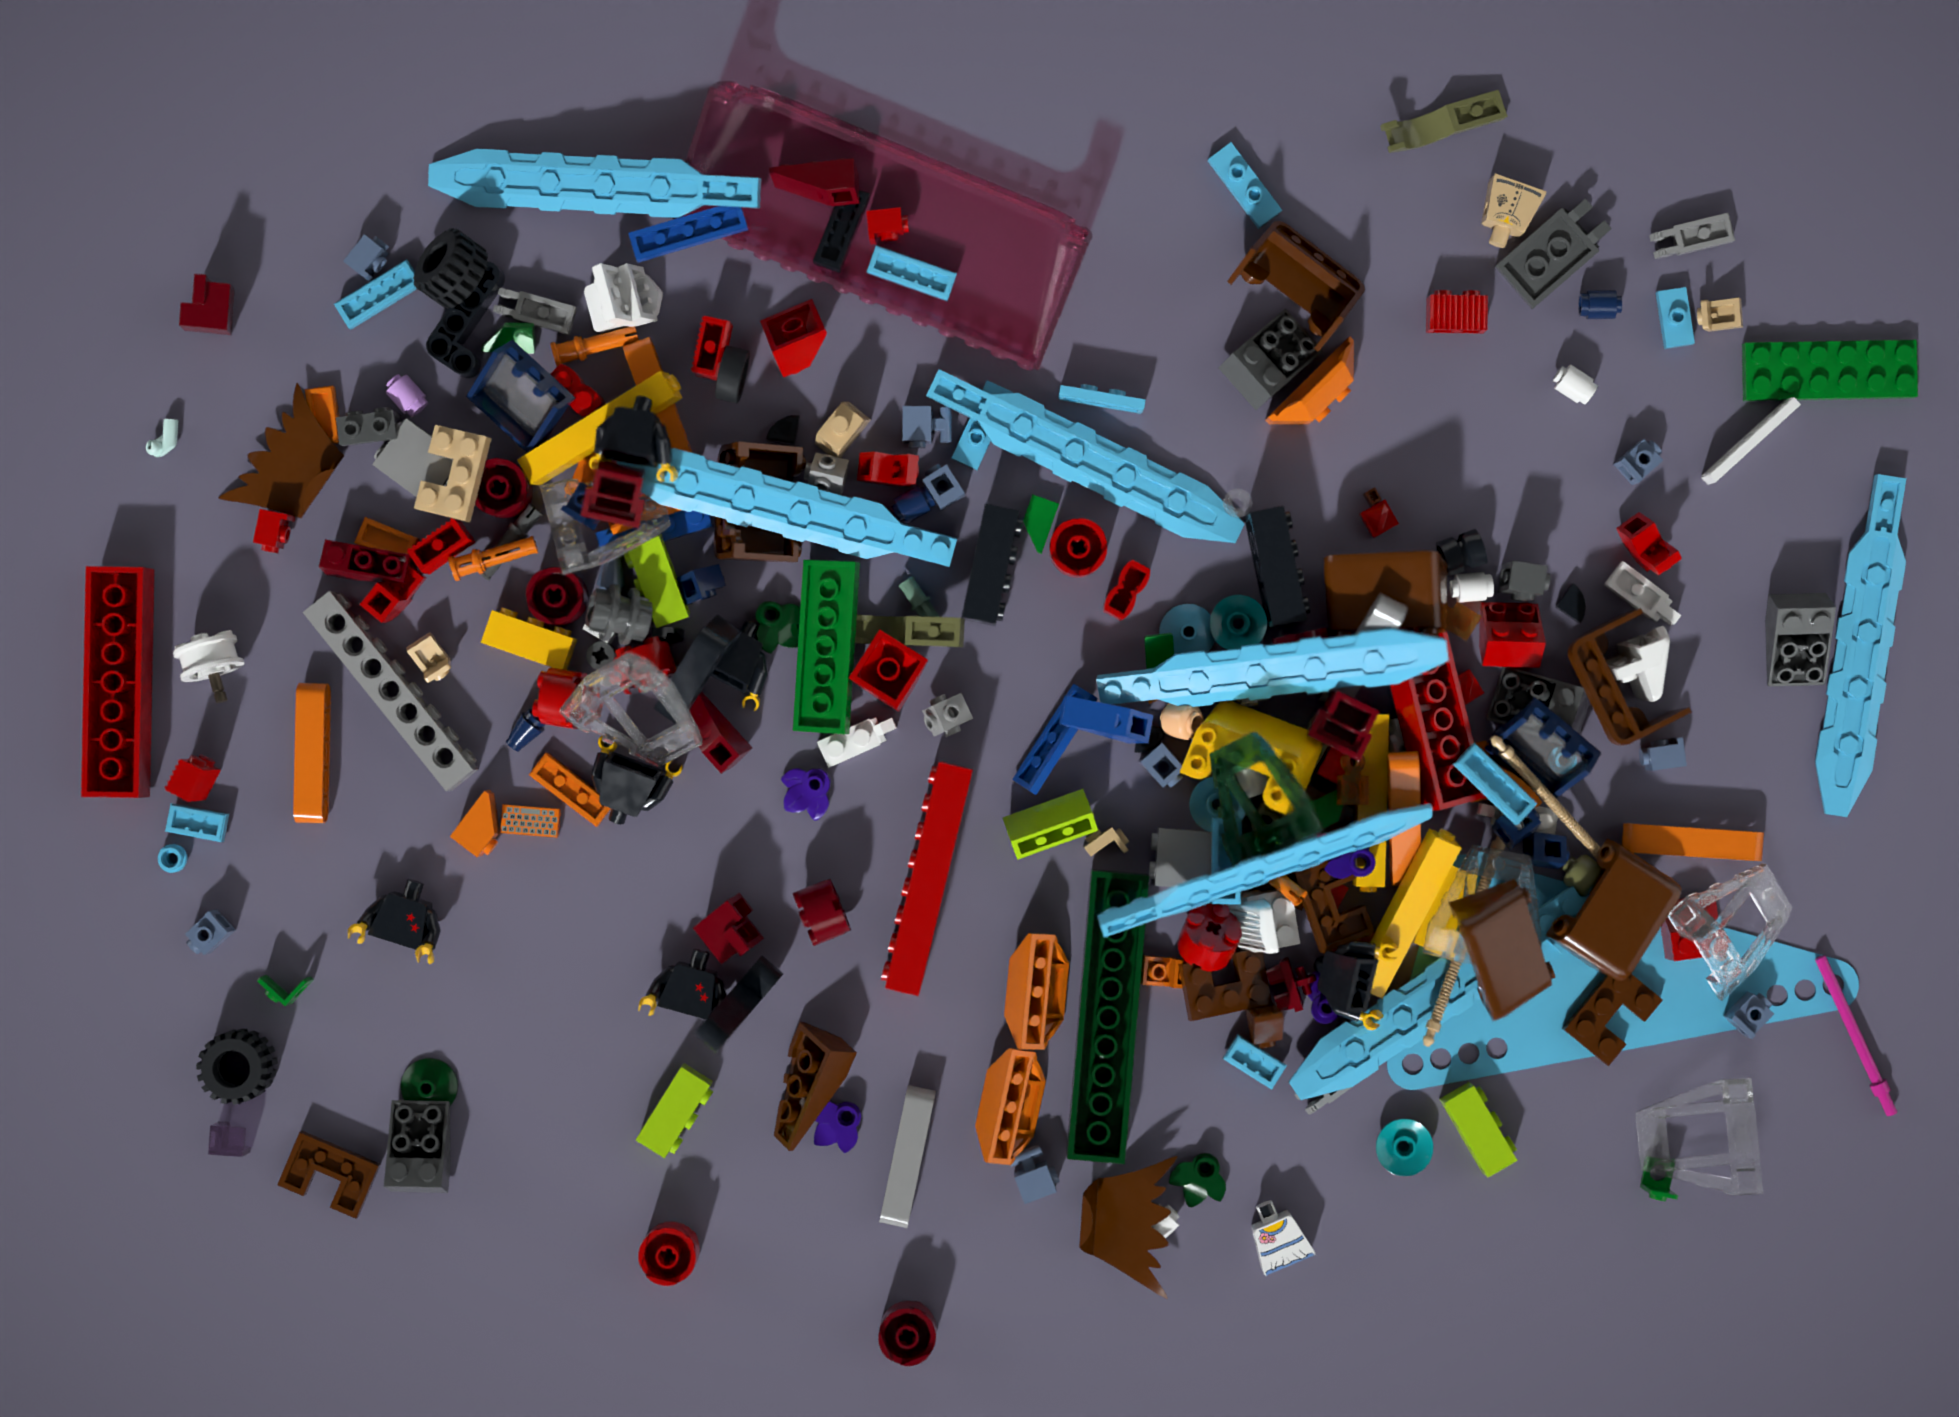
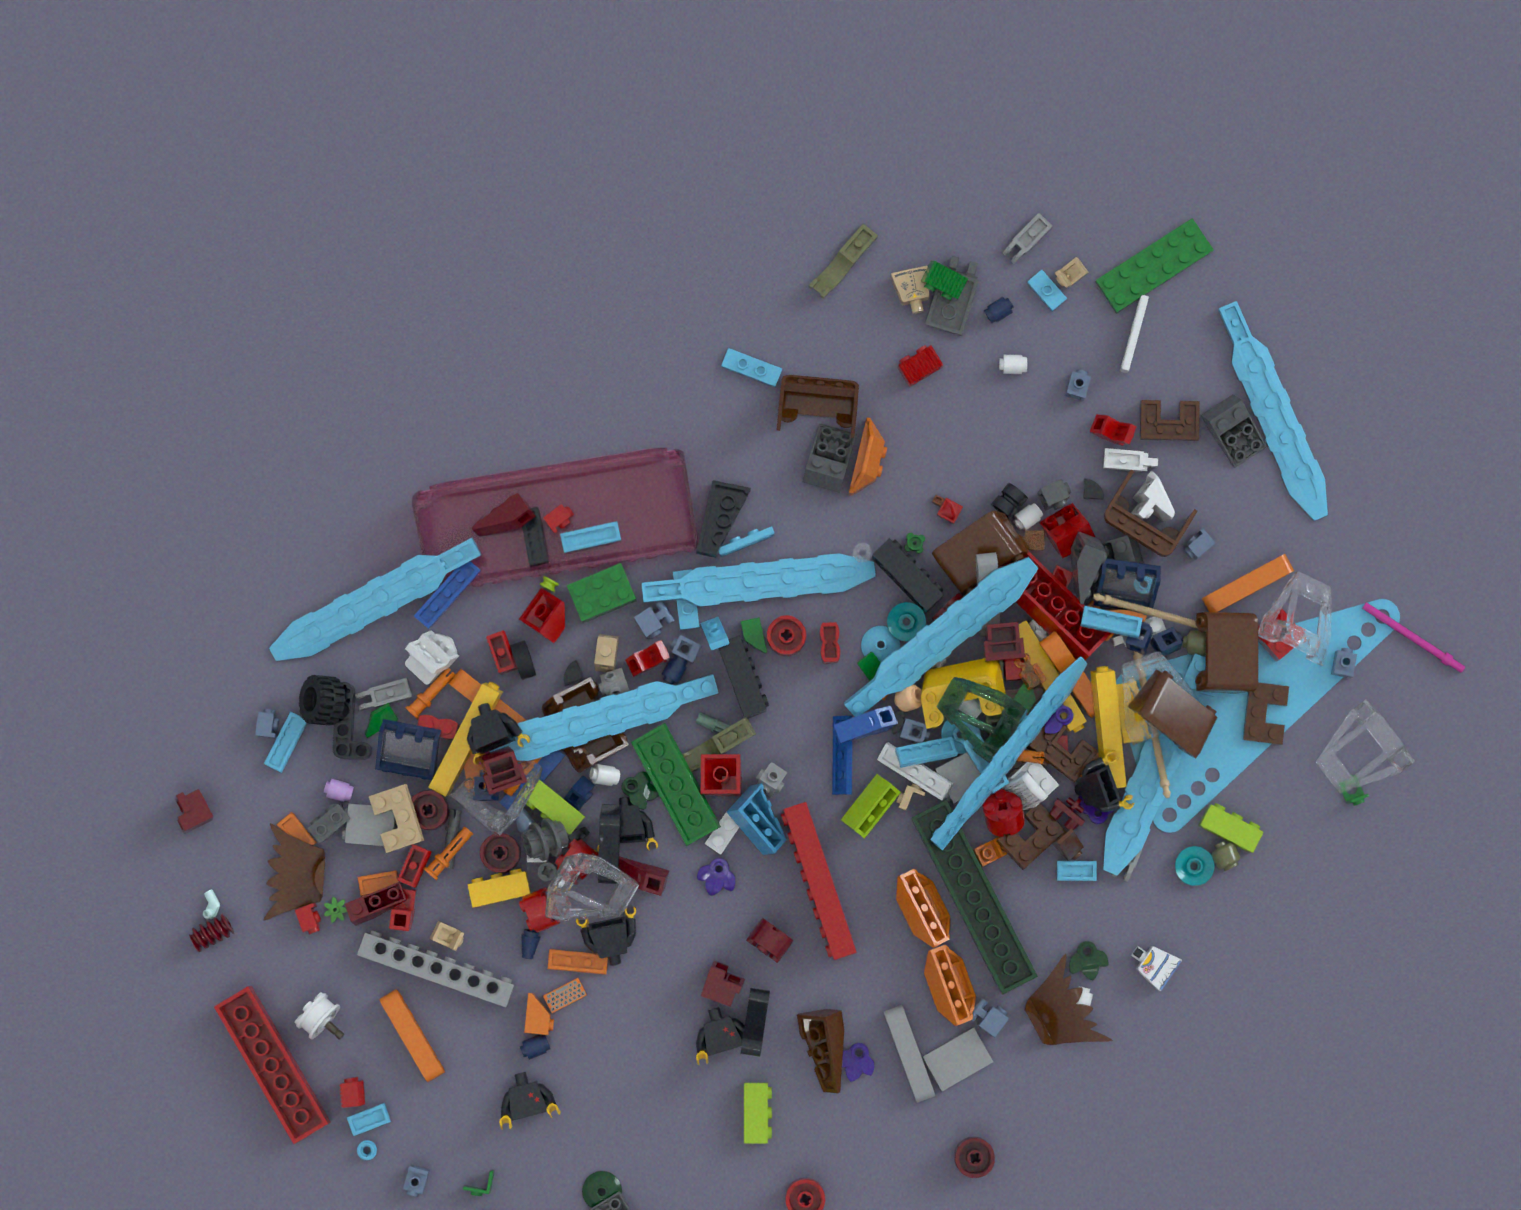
camera: 30 degrees left, 5 degrees down
(141, 474) = (211, 933): none -> dark red piece
(319, 539) = (338, 906): none -> bright green plant
(454, 861) = (535, 1046): none -> dark blue brick
(745, 580) = (604, 775): none -> white brick
(823, 300) = (549, 584): none -> lime bush
(881, 351) = (601, 593): none -> green brick
(898, 754) = (757, 820): none -> dark azure wedge
(963, 1199) = (957, 1059): none -> light grey tile
(990, 489) = (715, 633): none -> medium azure plate
(1091, 344) = (721, 512): none -> black wing
(1132, 815) = (918, 774): none -> white tile
(1161, 800) = (926, 752): none -> medium azure plate
(1318, 531) = (910, 546): none -> green plate
(1450, 1159) = (1225, 856): none -> olive head
(1512, 687) = (1086, 559): none -> dark grey slope
(1556, 222) = (944, 280): none -> green brick
(1735, 598) = (1156, 429): none -> reddish brown plate

